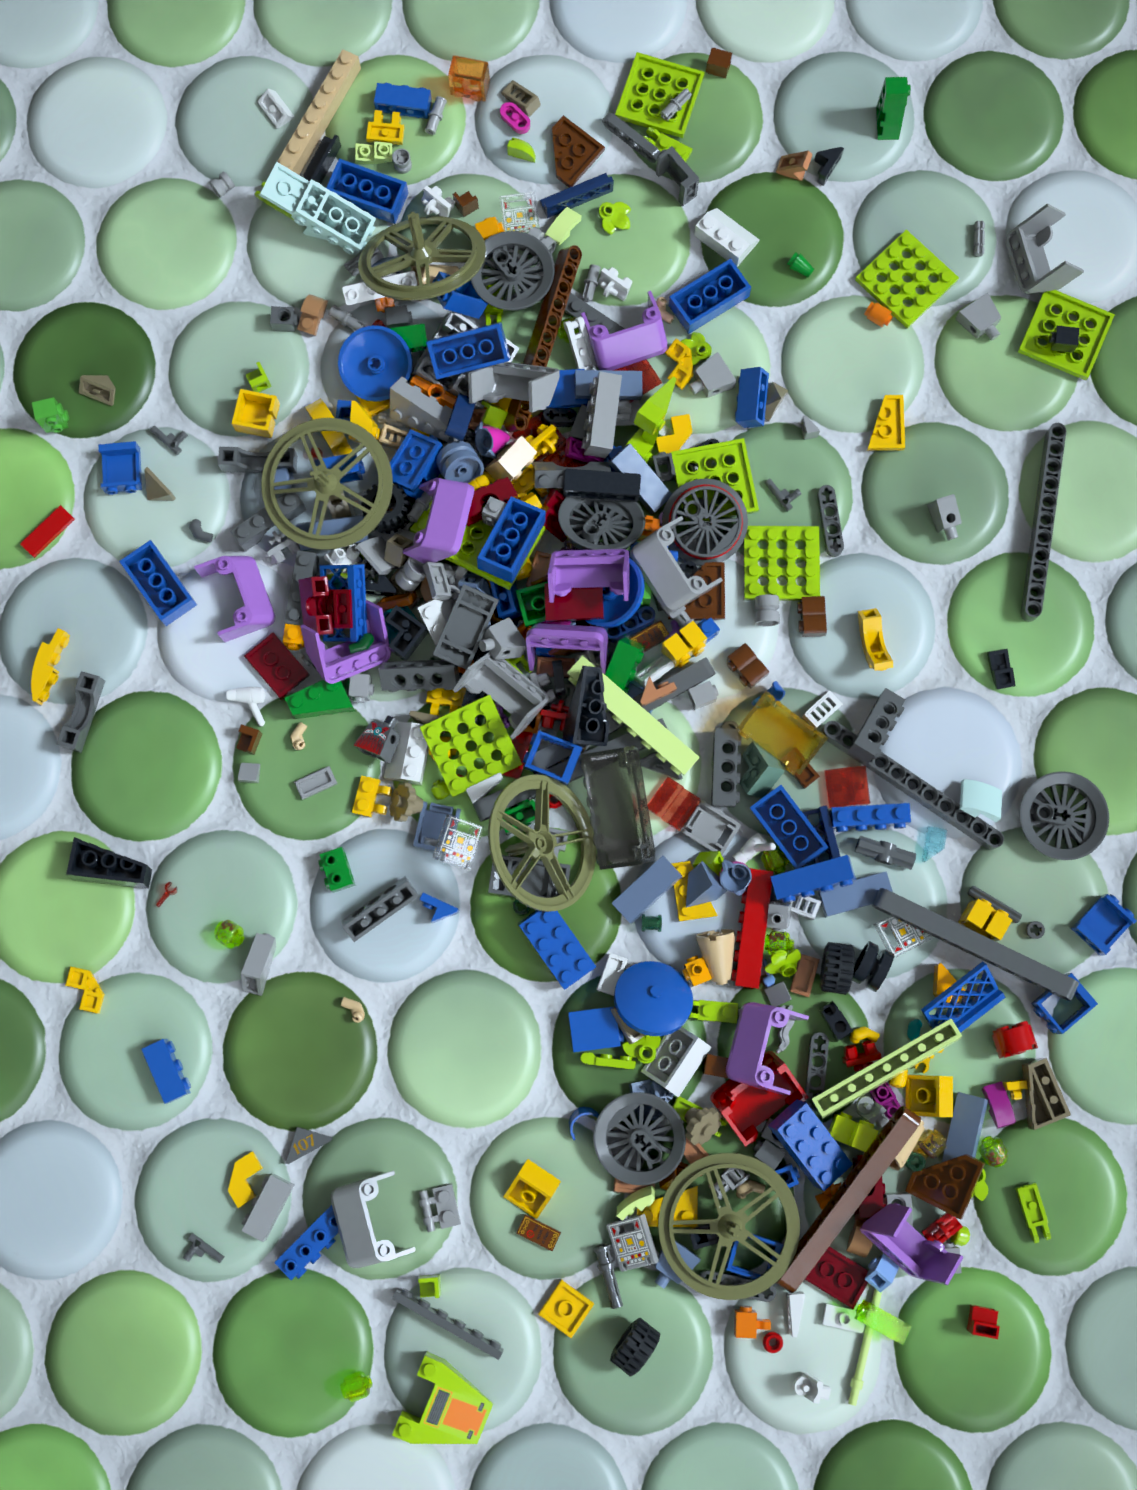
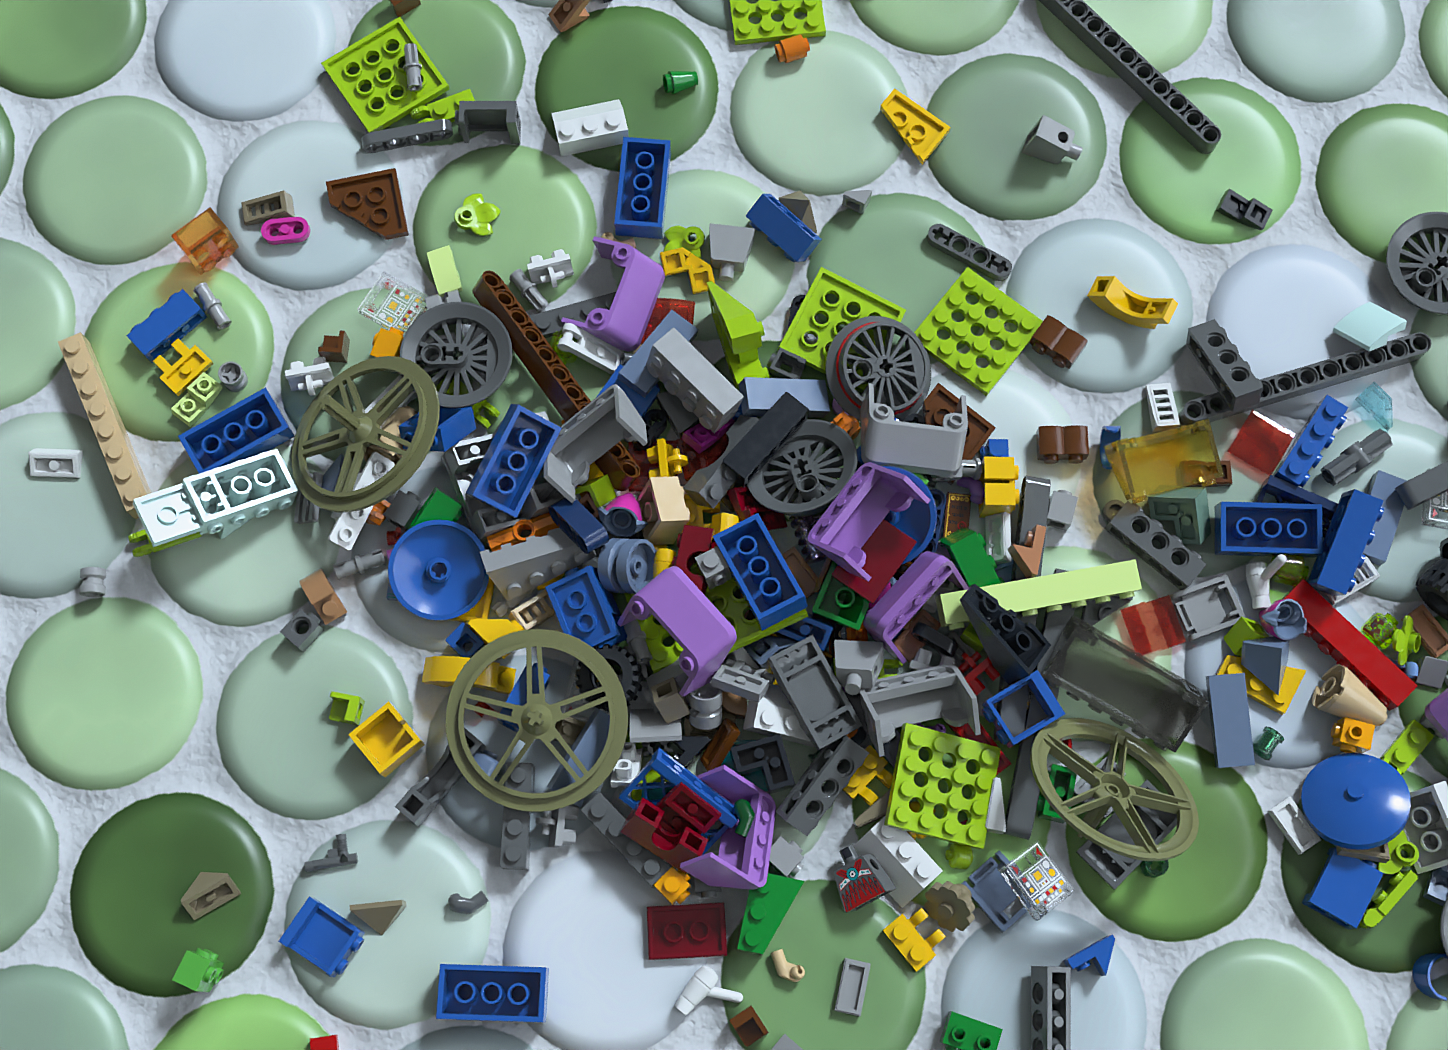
camera: 55 degrees left, 5 degrees down
(258, 609) = (610, 901): medium lavender windscreen -> none
(322, 159) = (157, 457): black panel -> none
(521, 149) = (325, 250): lime brick -> none
(557, 946) = (1230, 860): blue brick -> none
(577, 195) = (421, 233): dark blue fence -> none
(681, 432) = (771, 340): yellow tile -> none
(767, 611) = (1019, 380): light grey wheel -> none
(778, 915) = (1353, 608): light grey brick -> none
(783, 495) = (906, 276): dark grey hose -> none

